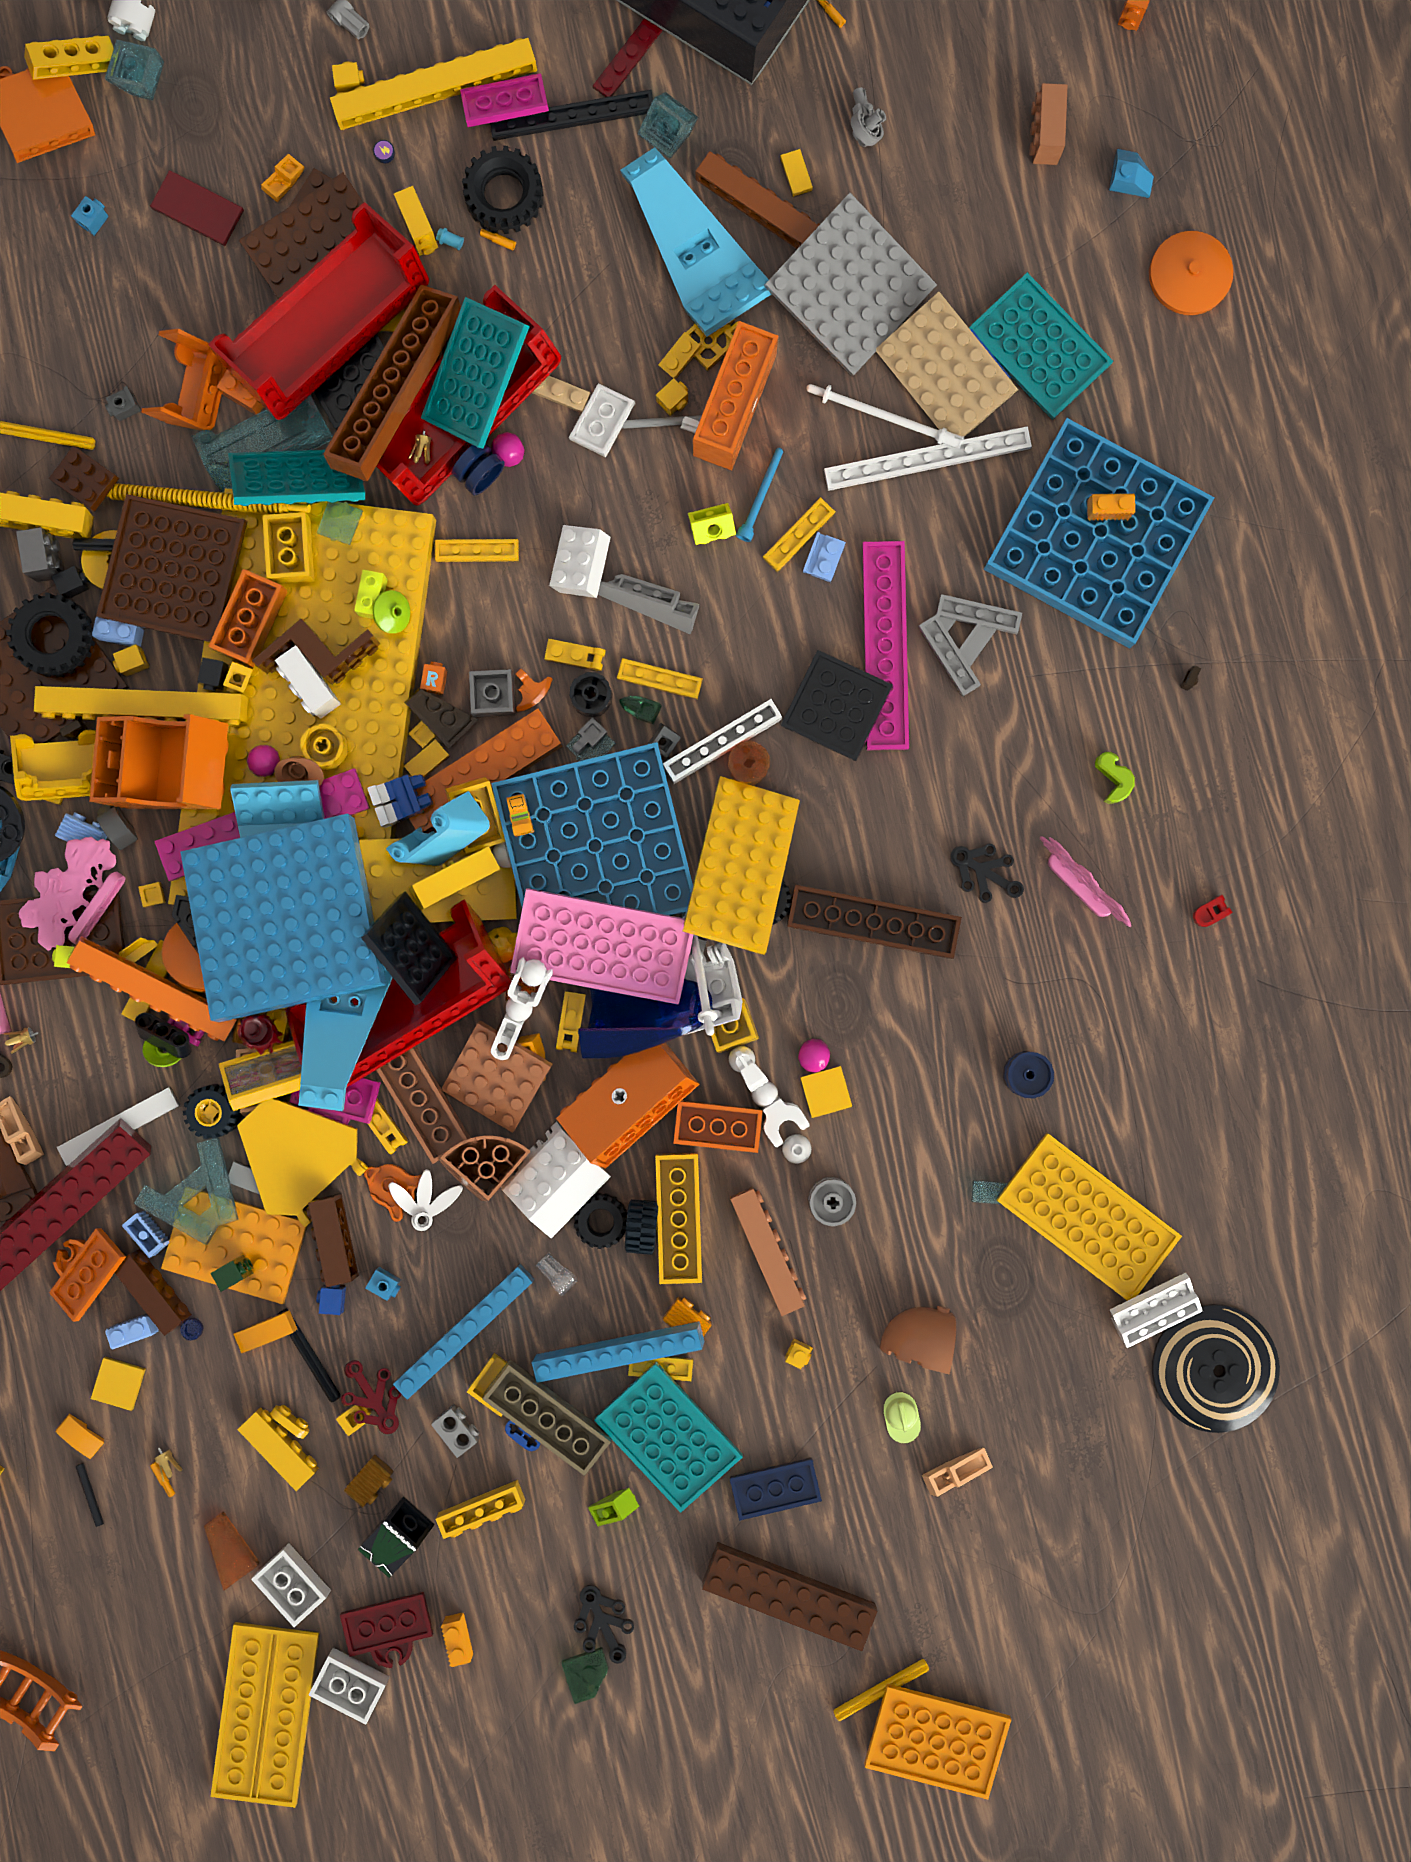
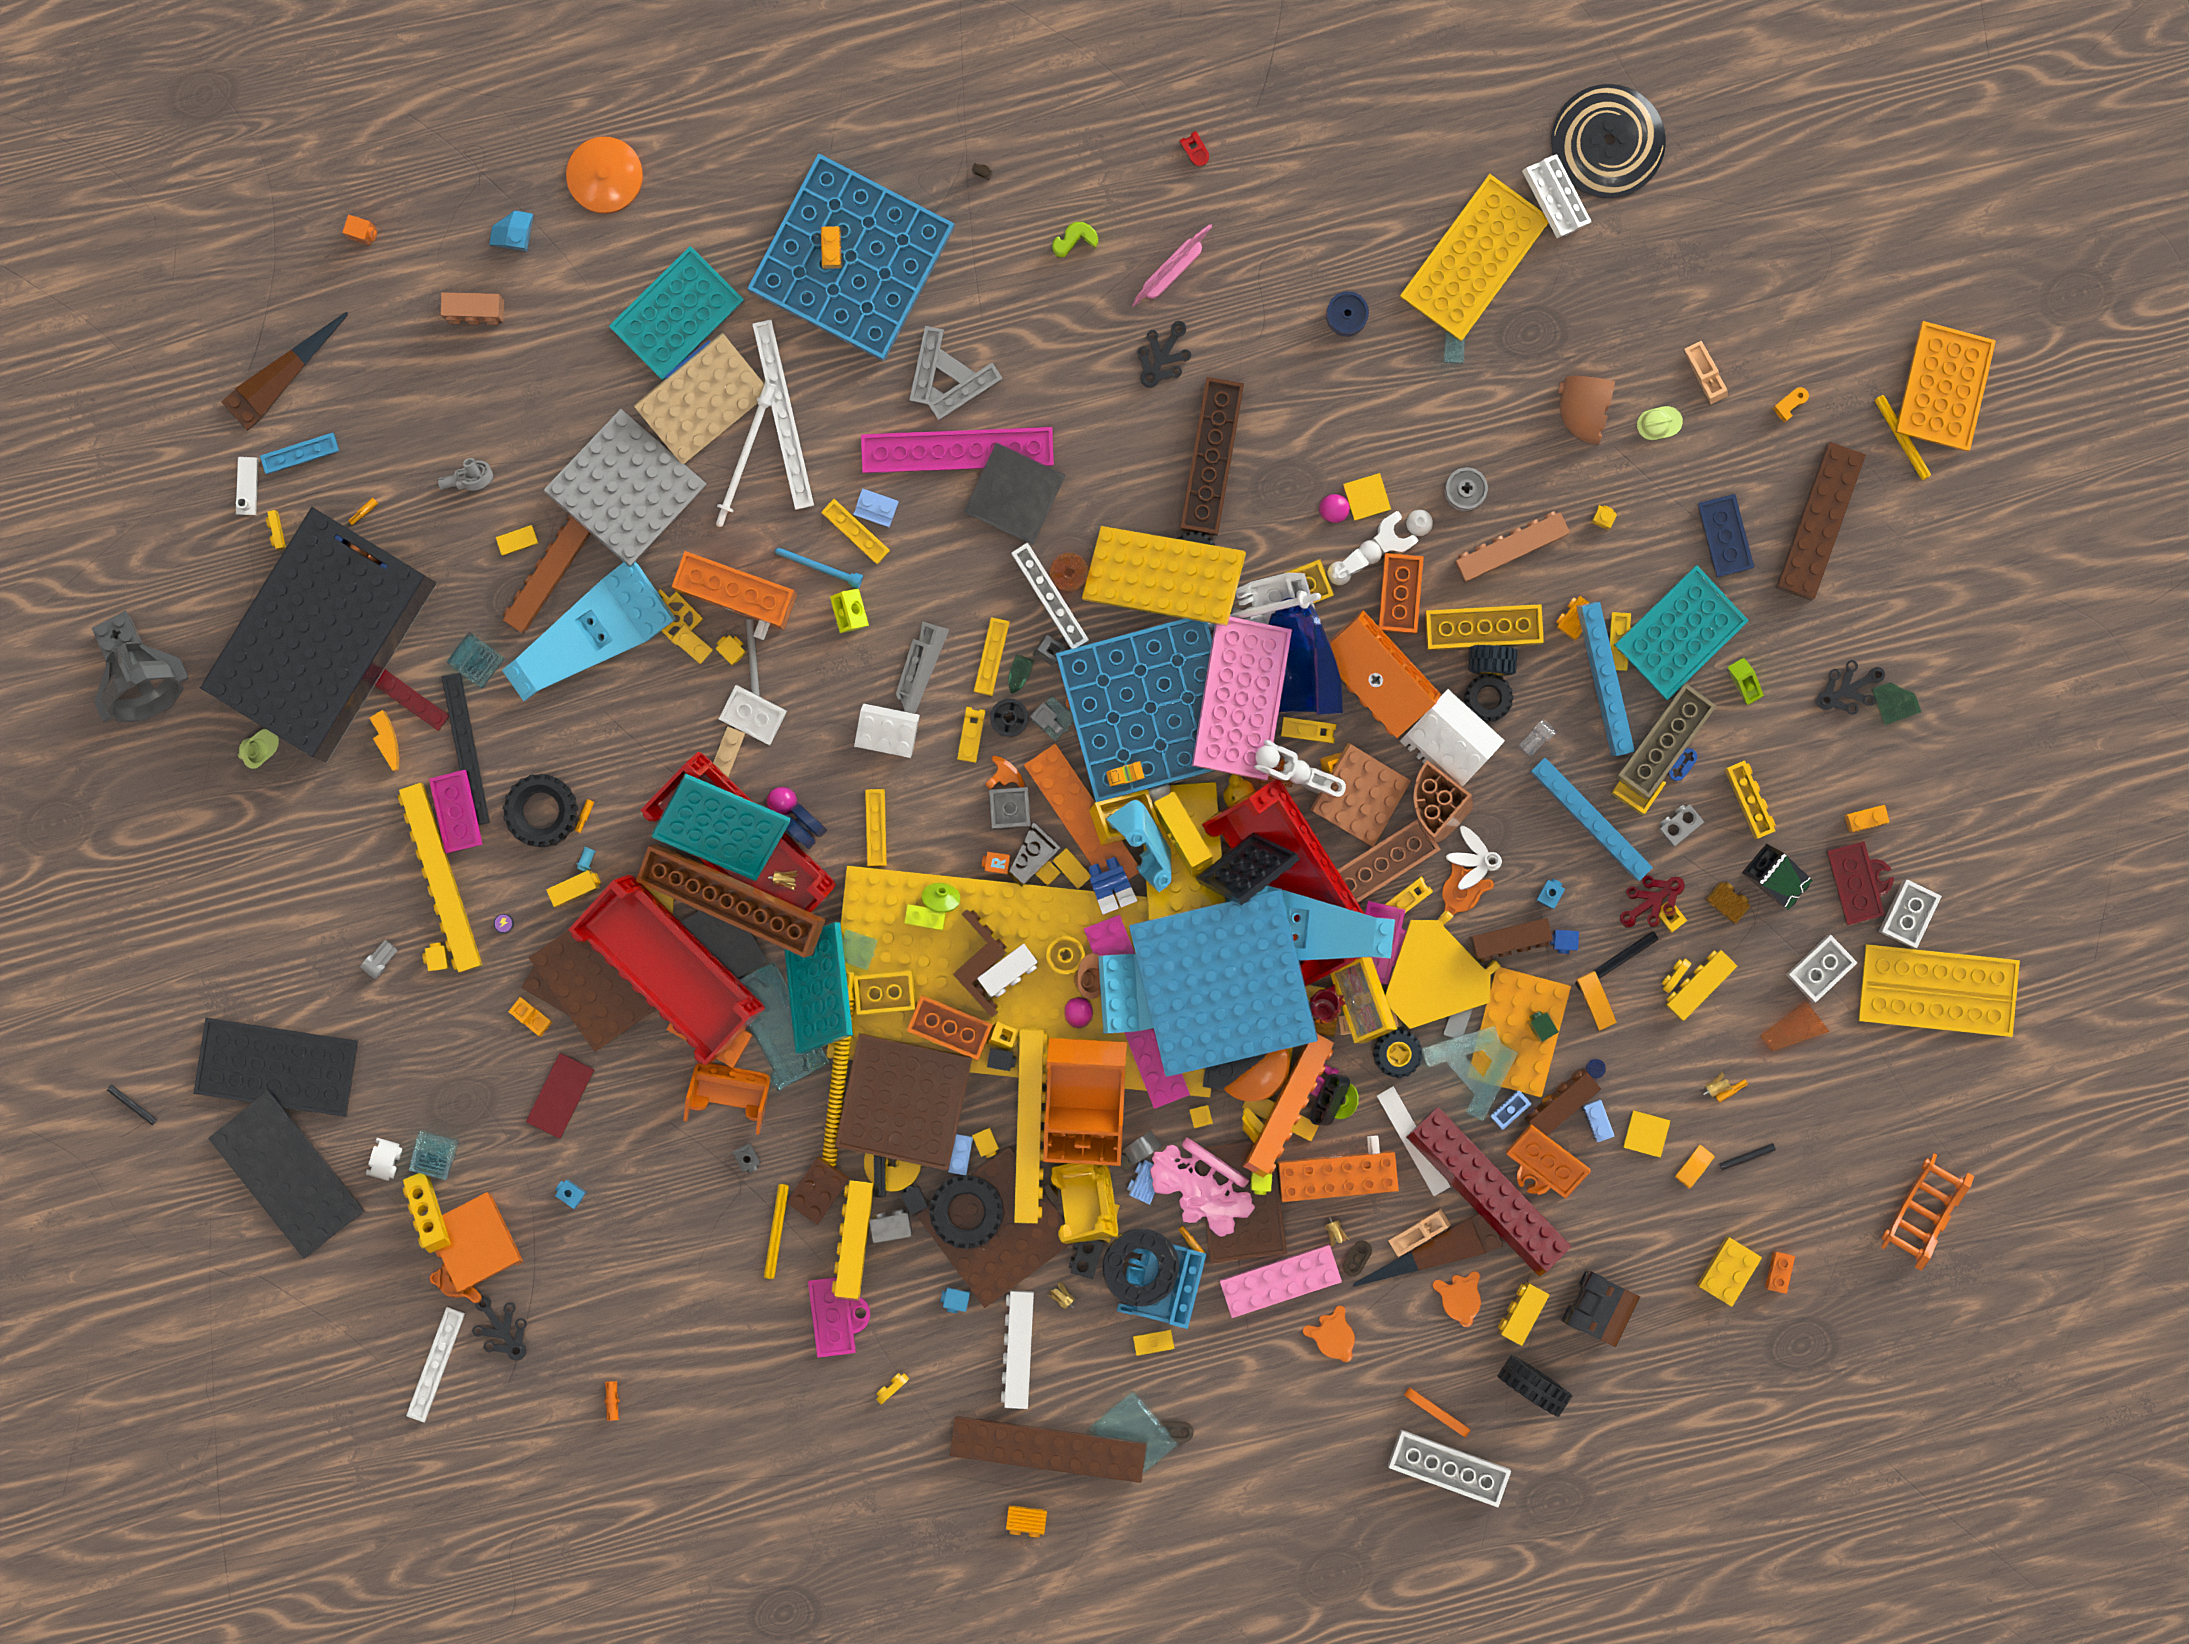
camera: 85 degrees left, 0 degrees up
(17, 881) = (1190, 1240): none -> light orange piece
(76, 1042) = (1339, 1175): none -> orange piece
(583, 29) = (386, 739): none -> light orange slope
(917, 1558) = (1795, 398): none -> light orange leg

